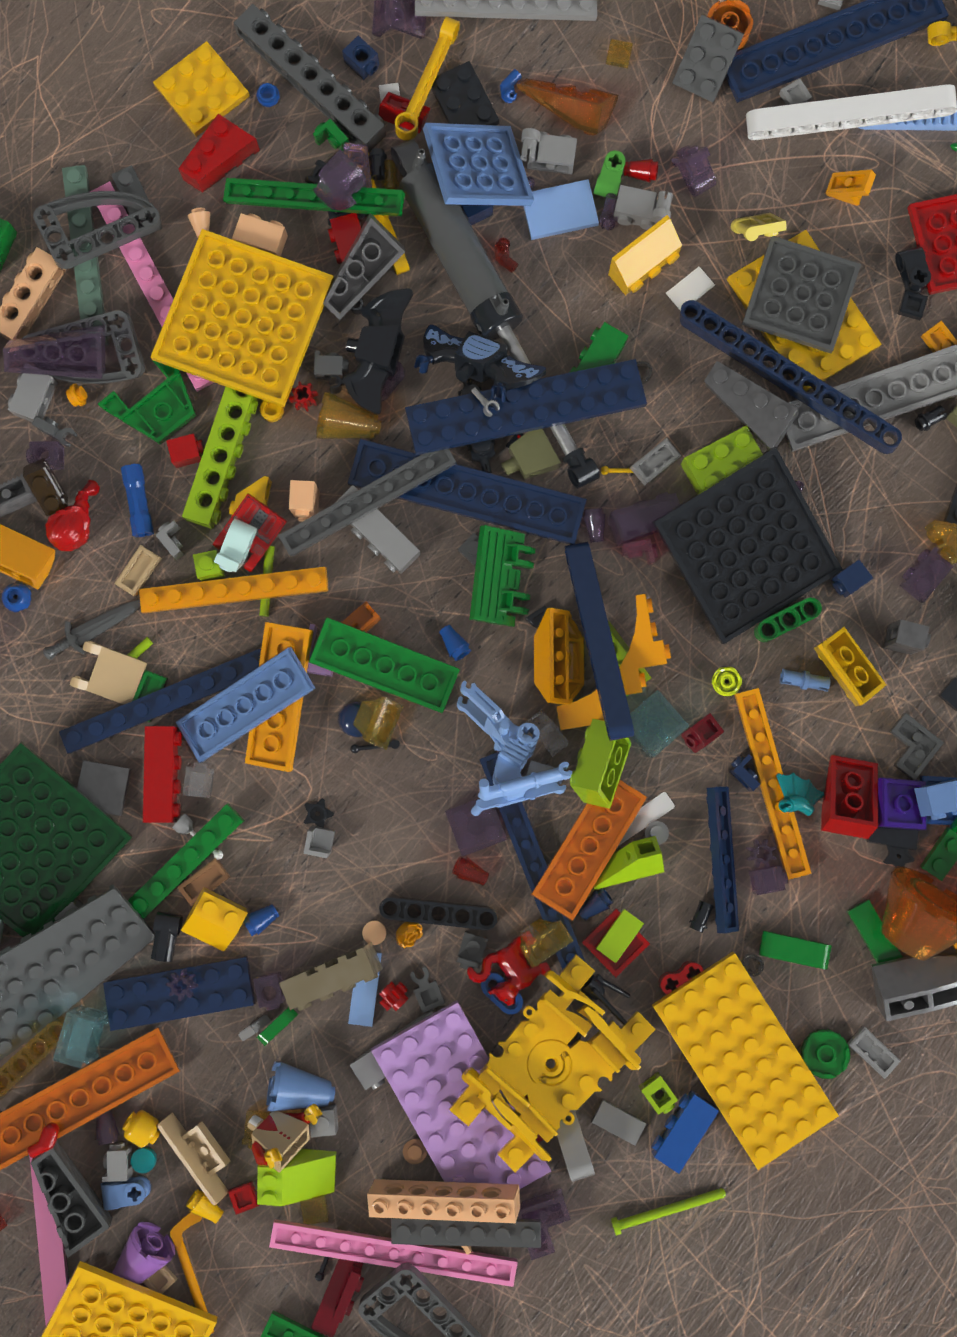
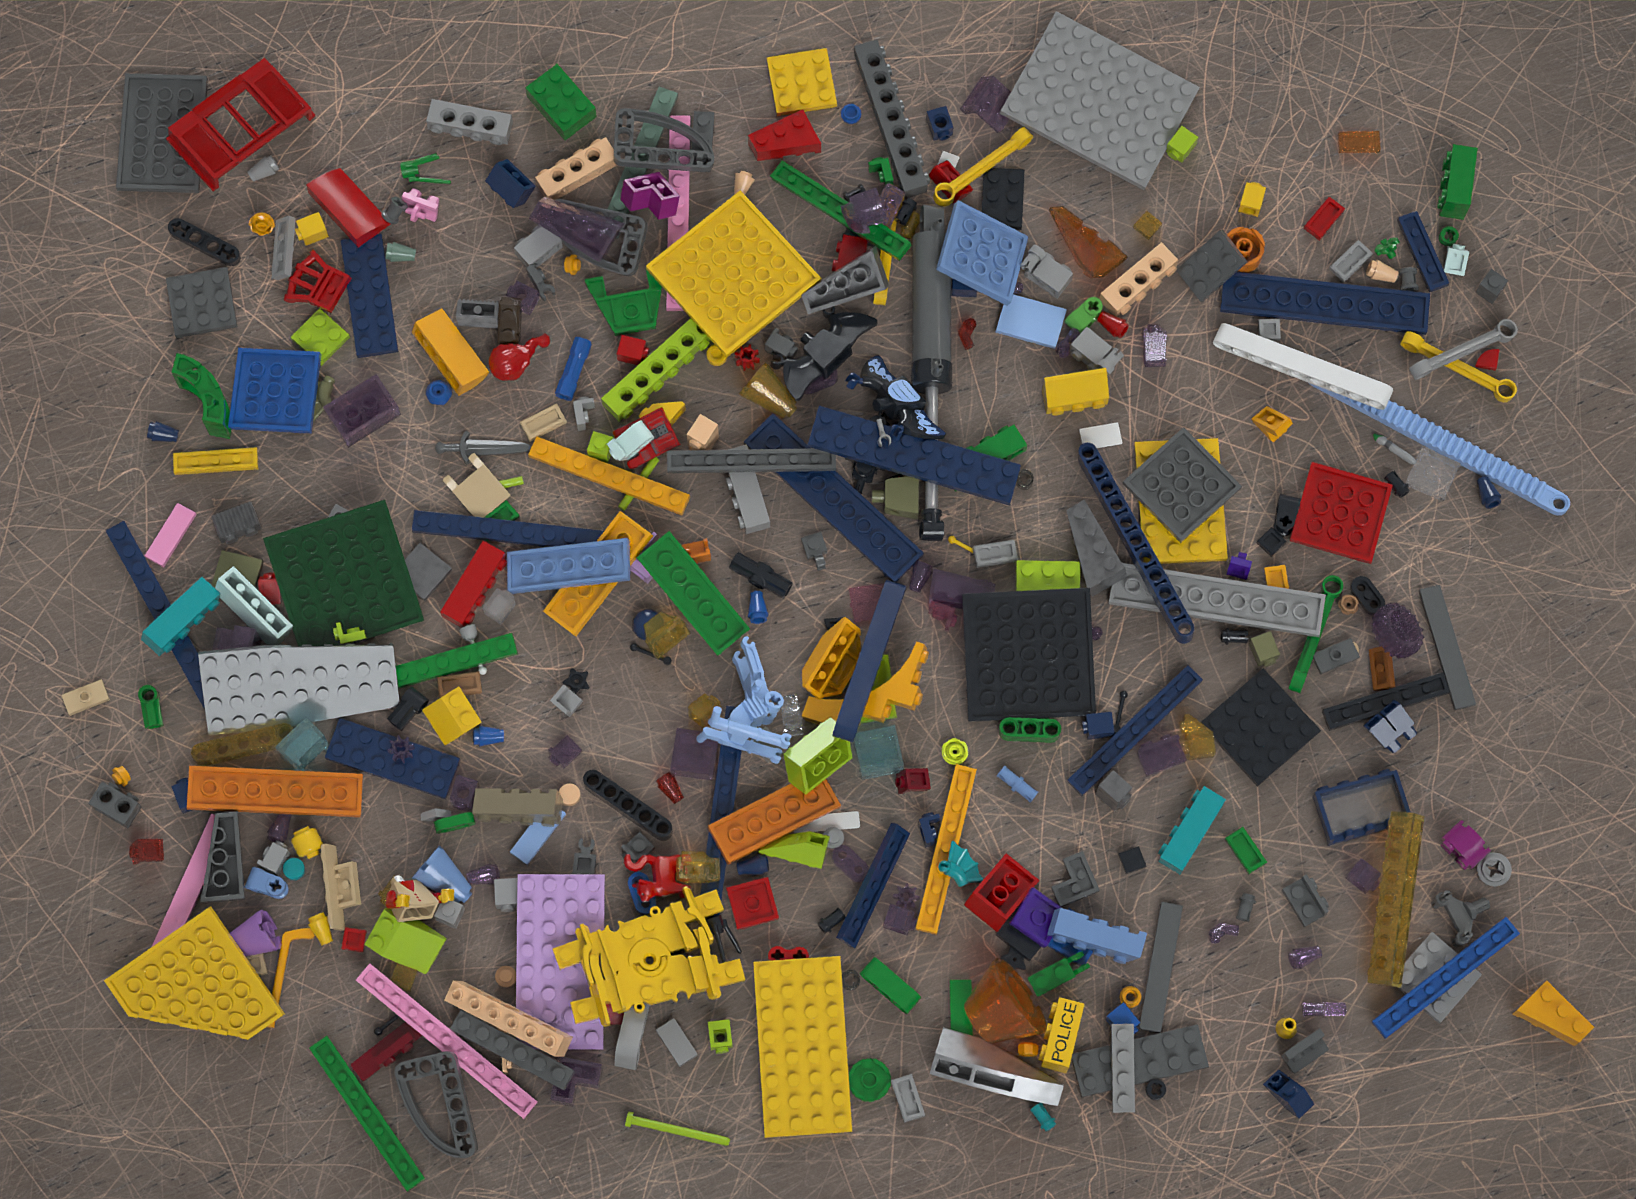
camera: 25 degrees right, 10 degrees down
(46, 1141) = (235, 805): red arm -> none
(67, 897) = (352, 634): none -> lime bracket
(115, 279) = (650, 192): none -> magenta brick
(260, 234) = (784, 217): light nougat brick -> none
(336, 1062) = (483, 875): none -> clear purple cone
(345, 893) = (564, 752): none -> clear purple bracket
(393, 996) = (557, 848): red gear -> none
(408, 934) = (595, 808): light orange plate -> none
(437, 608) = (760, 575): none -> black piece
(461, 775) = (701, 709): none -> clear yellow slope
(496, 577) = (817, 575): green hinge -> none
(507, 86) = (1043, 205): blue arm -> none
(555, 577) = (864, 601): none -> clear pink piece
(619, 935) = (758, 897): lime tile -> none
(652, 78) = (1159, 257): none -> light nougat brick
(684, 1131) = (724, 1074): blue brick -> none
(687, 848) = (850, 863): none -> clear purple plate
(758, 225) = (1179, 414): light yellow plate -> none
(850, 667) = (1057, 789): yellow slope -> none
(856, 534) = (1123, 694): none -> black hinge
(888, 562) = (1134, 730): none -> dark blue plate
(898, 345) = (1239, 566): none -> dark purple tile

